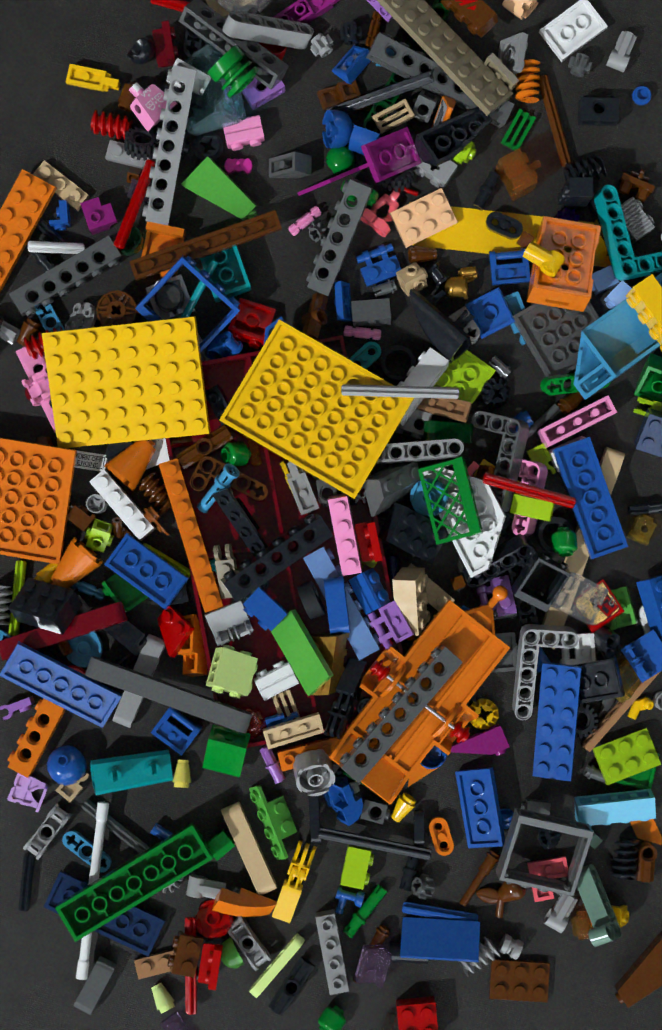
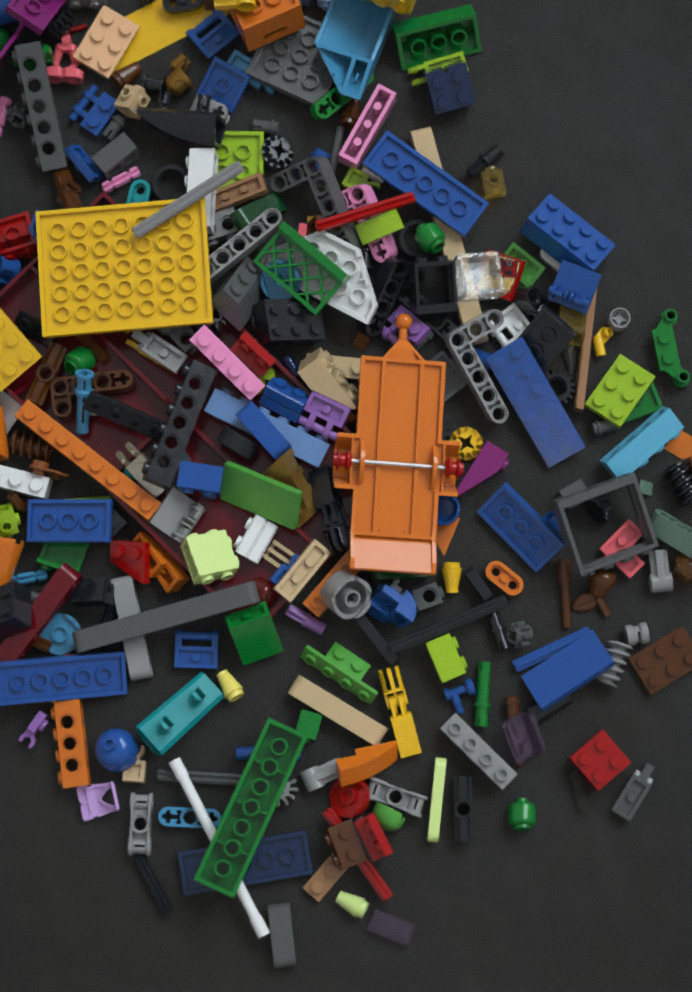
camera: 30 degrees left, 5 degrees down
(398, 724) = (398, 409): dark grey brick -> none

